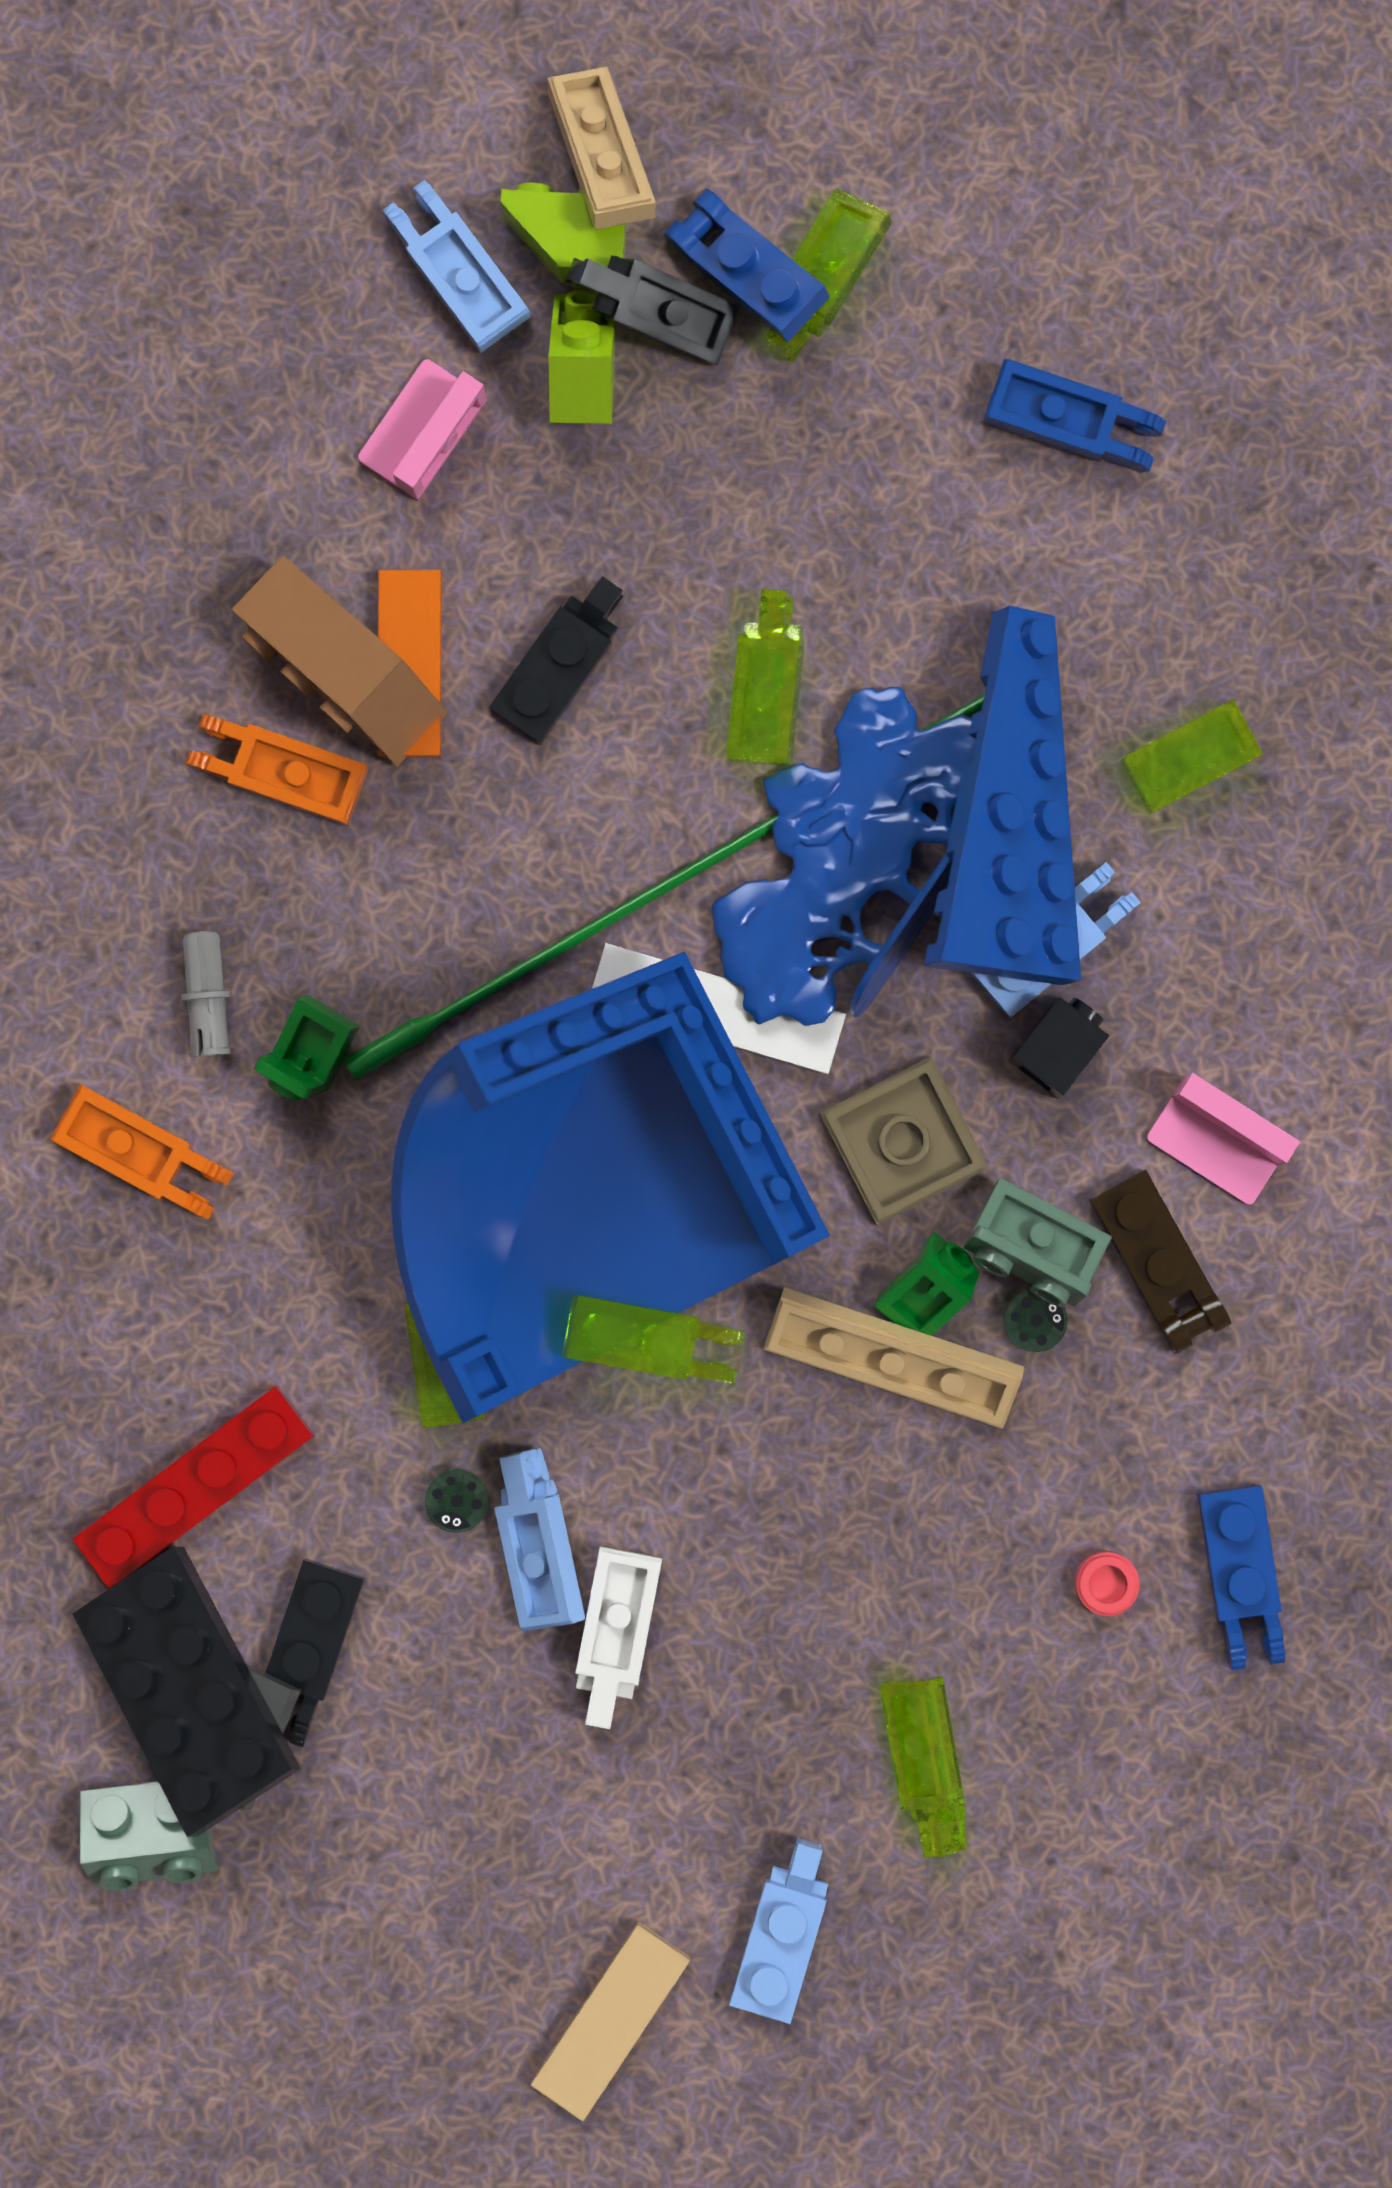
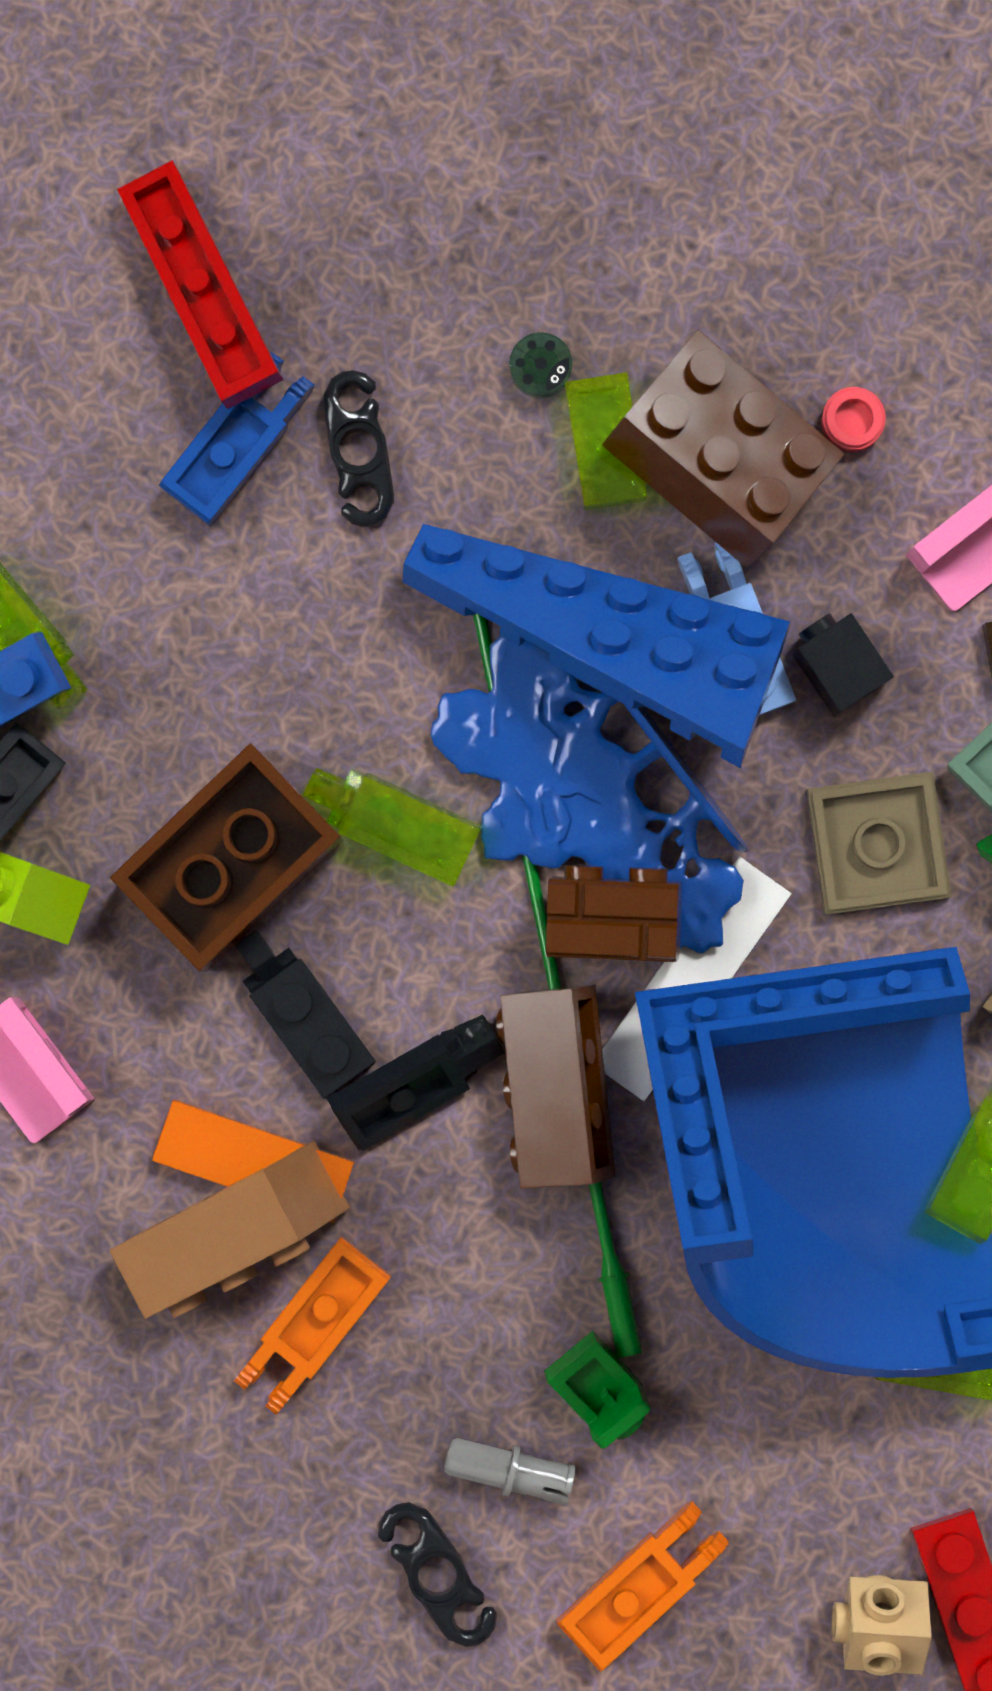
camera: 75 degrees left, 0 degrees up
(61, 974) = (439, 1605): none -> black piece
(179, 1384) = (883, 1625): none -> tan brick
(532, 784) = (415, 1082): none -> black hinge
(573, 914) = (556, 1087): none -> reddish brown brick
(679, 538) = (226, 858): none -> reddish brown brick
(748, 911) = (614, 916): none -> reddish brown brick
(1087, 556) = (341, 424): none -> black piece
(1204, 330) = (200, 284): none -> red plate
(1221, 862) = (723, 449): none -> reddish brown brick
(1242, 673) = (540, 365): none -> clear green tile
(1294, 982) = (853, 419): none -> coral tile

